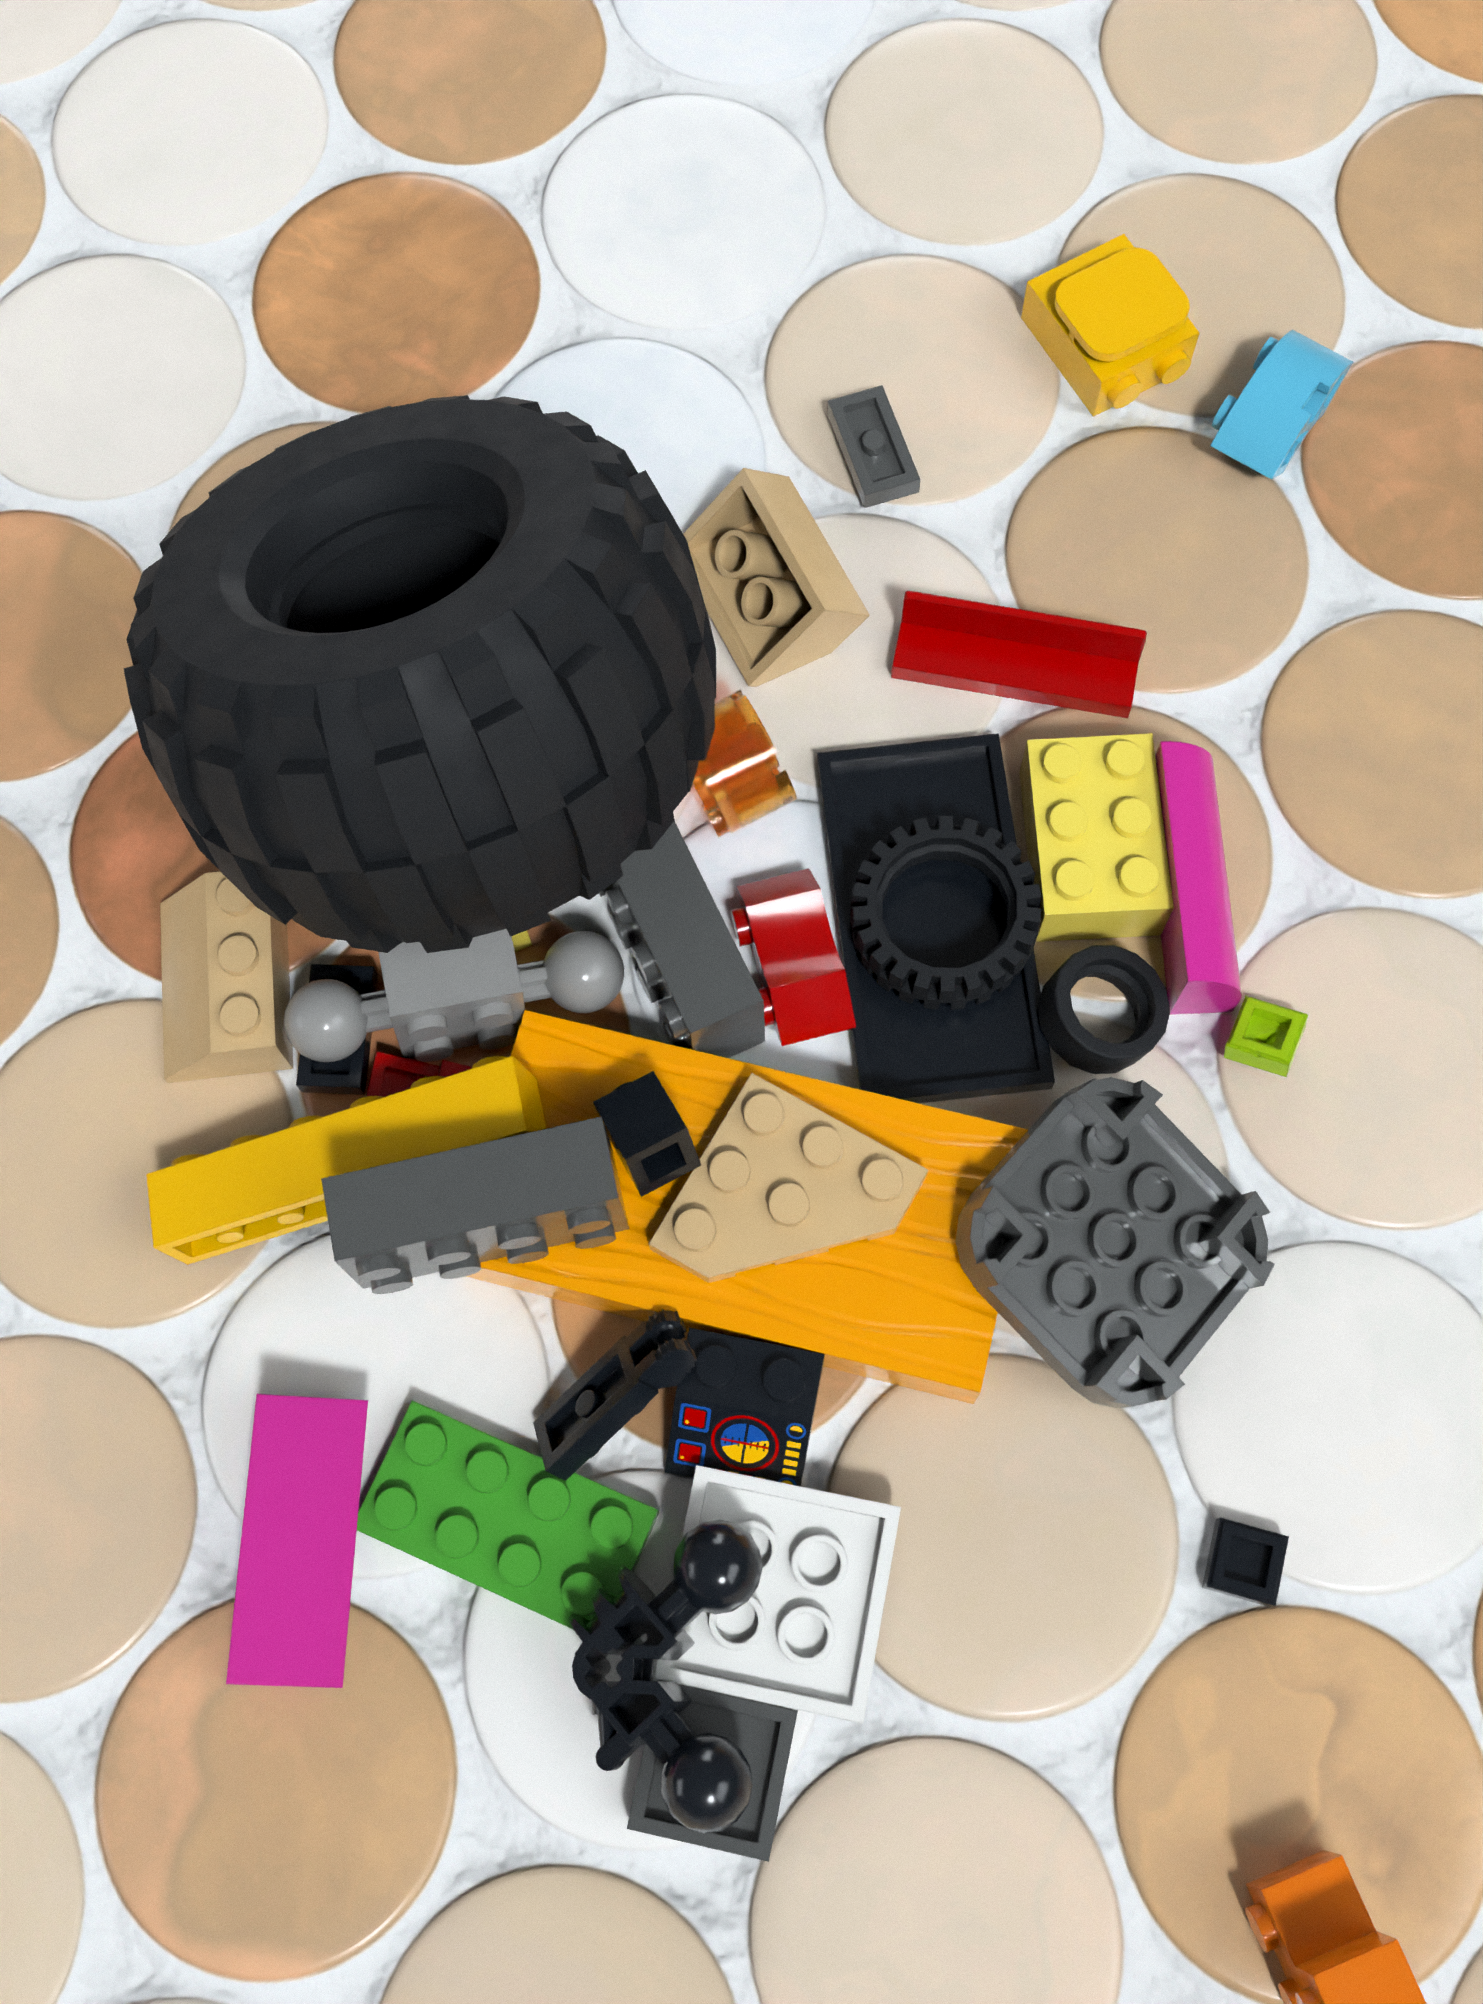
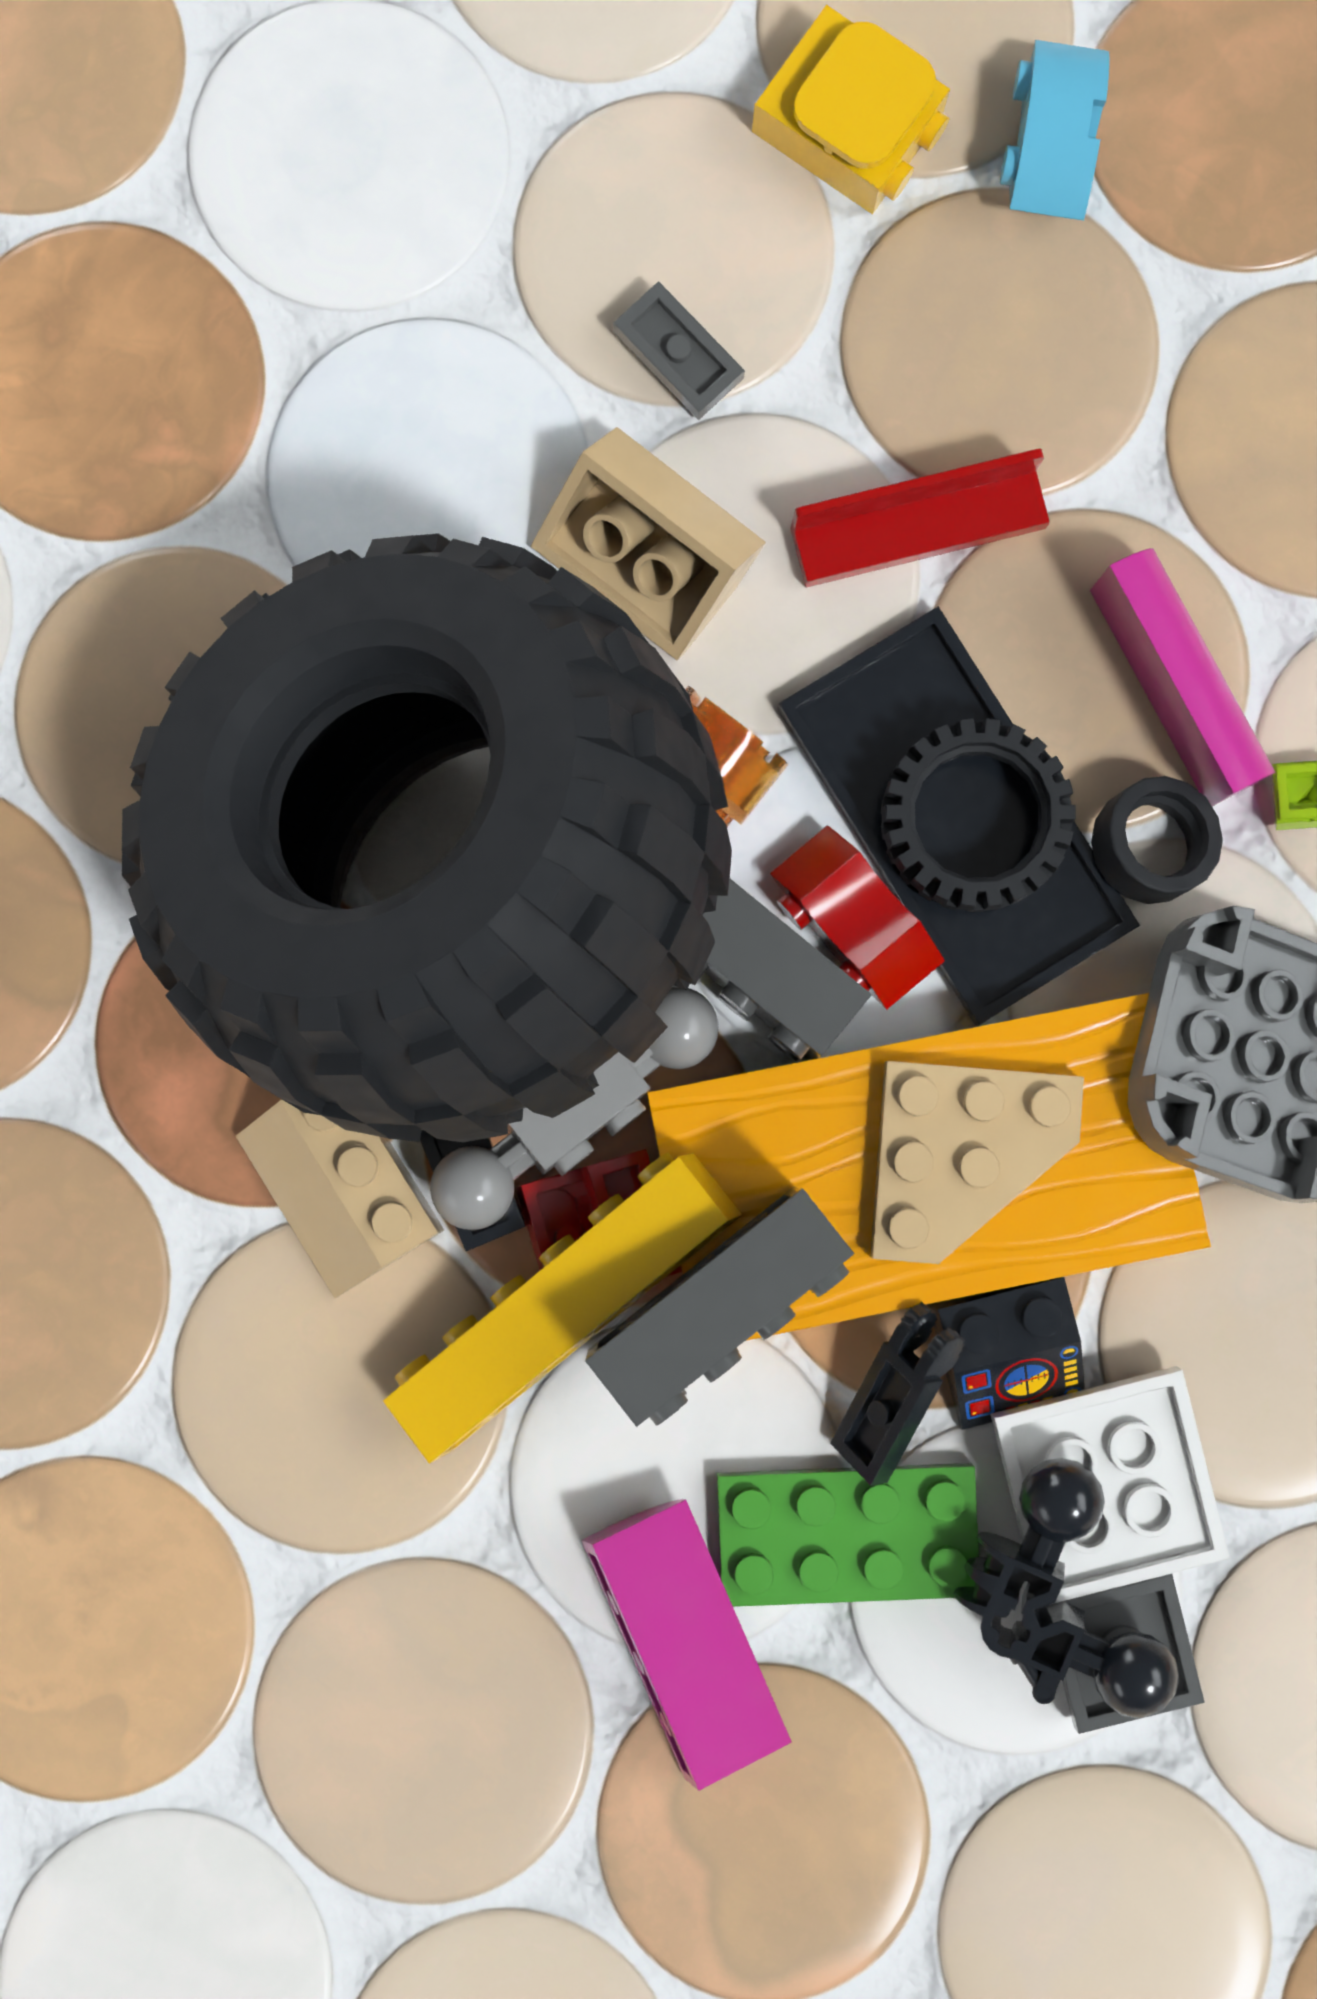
camera: 35 degrees left, 15 degrees up
(647, 1133) = (825, 1163): black brick -> none
(1096, 836) = (1076, 670): light yellow brick -> none

